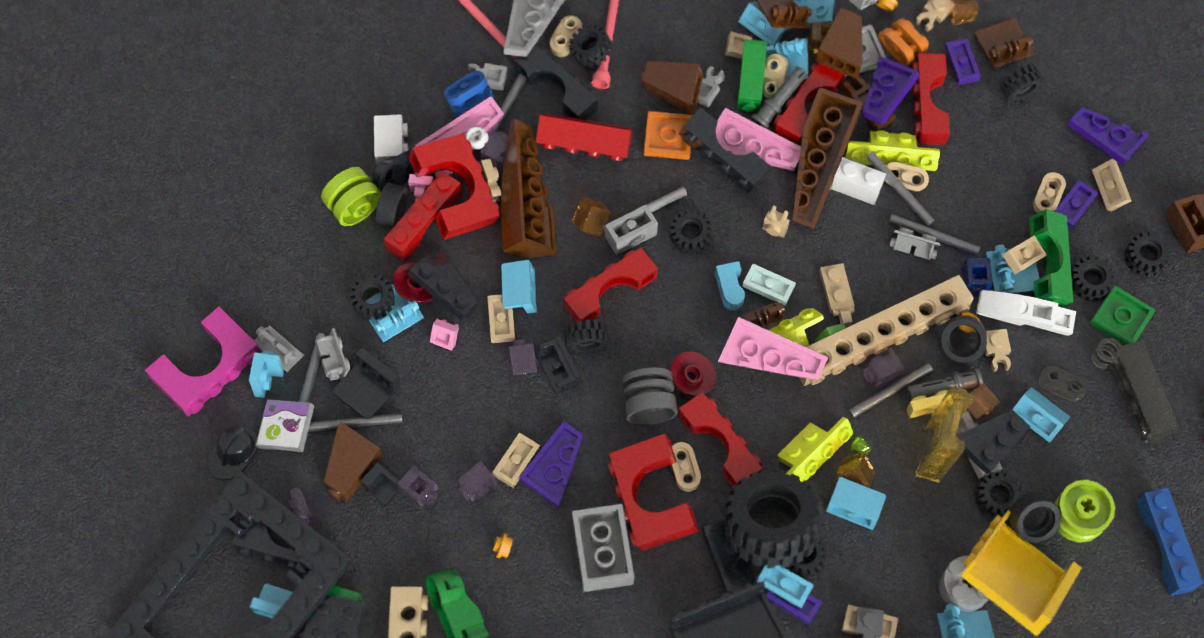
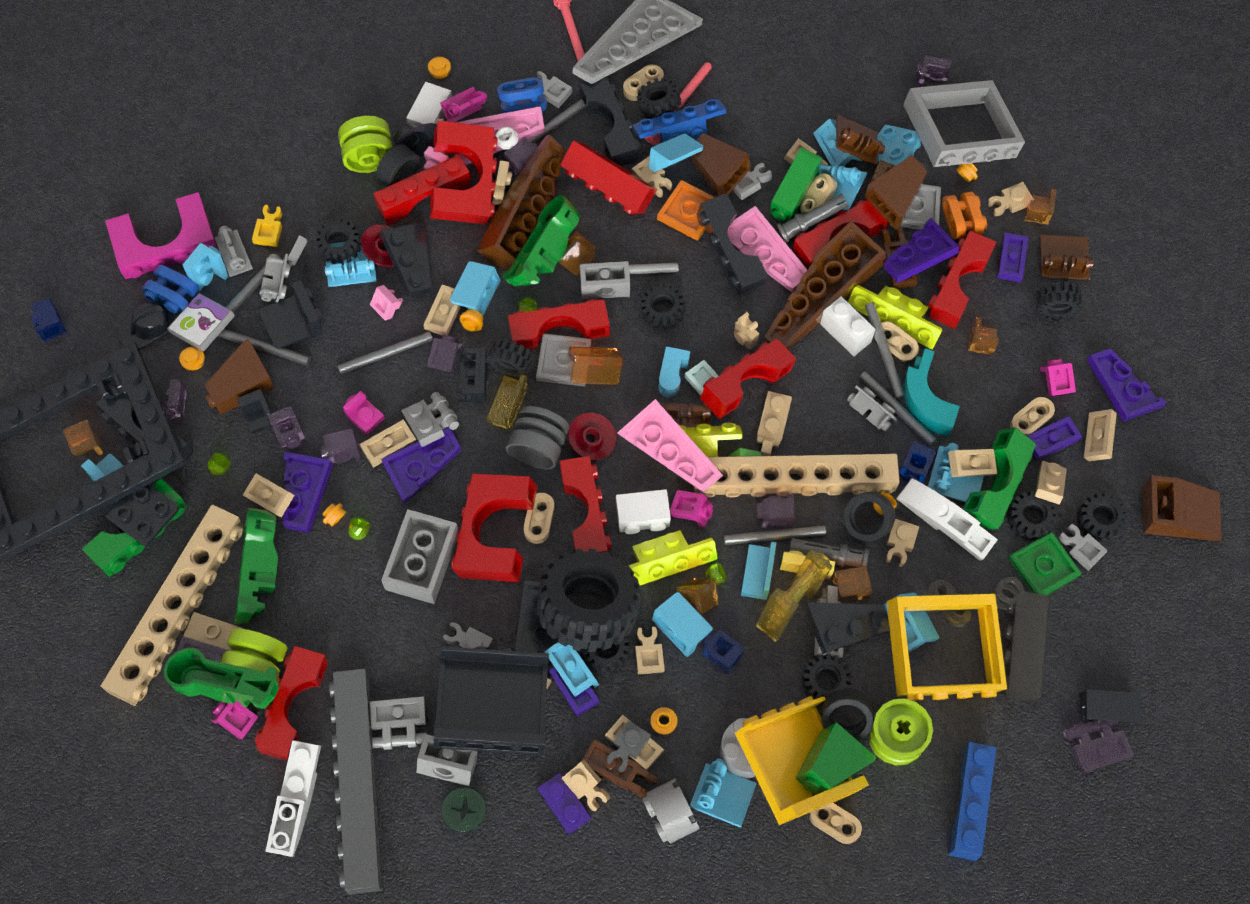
camera: 25 degrees right, 0 degrees up
(137, 486) = (47, 320): none -> clear blue brick
(229, 415) = (172, 300): none -> blue brick
(234, 582) = (82, 438): none -> clear orange panel
(294, 462) = (192, 358): none -> light orange plate
(299, 313) = (268, 230): none -> yellow plate
(337, 320) = (296, 251): none -> light grey tile
(372, 547) = (218, 464): none -> clear neon green hinge
(375, 97) = (439, 67): none -> light orange plate
(418, 122) = (463, 104): none -> dark pink hinge
(435, 555) = (268, 495): none -> tan plate
(462, 532) = (307, 480): none -> dark purple wing
(466, 380) = (385, 352): none -> flat silver bar
(478, 443) = (362, 413): none -> dark pink bracket
(531, 316) = (472, 320): none -> light orange plate
(531, 548) = (358, 528): none -> clear neon green hinge
(539, 428) = (422, 420): none -> light grey plate
(562, 217) = (546, 243): none -> green piece
(575, 284) = (529, 301): none -> clear neon green hinge
(601, 375) = (507, 401): none -> clear yellow panel
(619, 115) = (653, 178): none -> tan plate
(623, 62) = (688, 121): none -> blue bracket
(629, 316) = (554, 362): none -> light grey tile
(632, 88) = (673, 151): none -> medium azure panel
(662, 309) = (595, 365): none -> clear orange panel
(683, 600) = (470, 639): none -> light grey plate
(771, 420) = (643, 511): none -> white brick
(809, 244) = (768, 363): none -> red arch
(809, 398) = (691, 507): none -> dark pink bracket
(841, 543) = (649, 656): none -> tan plate
(880, 600) = (660, 728): none -> light orange plate
(895, 427) = (758, 571): none -> medium azure panel
(910, 507) = (732, 648): none -> clear blue brick
(952, 220) = (922, 403): none -> teal arch
(974, 143) = (983, 338): none -> clear orange panel
(1044, 560) = (833, 759): none -> green slope
(1053, 149) = (1059, 377): none -> dark pink bracket
(1068, 616) = (836, 820): none -> tan plate
(1093, 243) = (1051, 482): none -> tan plate
(1116, 402) = (989, 636): none -> yellow window
(1148, 287) = (1085, 550): none -> light grey plate

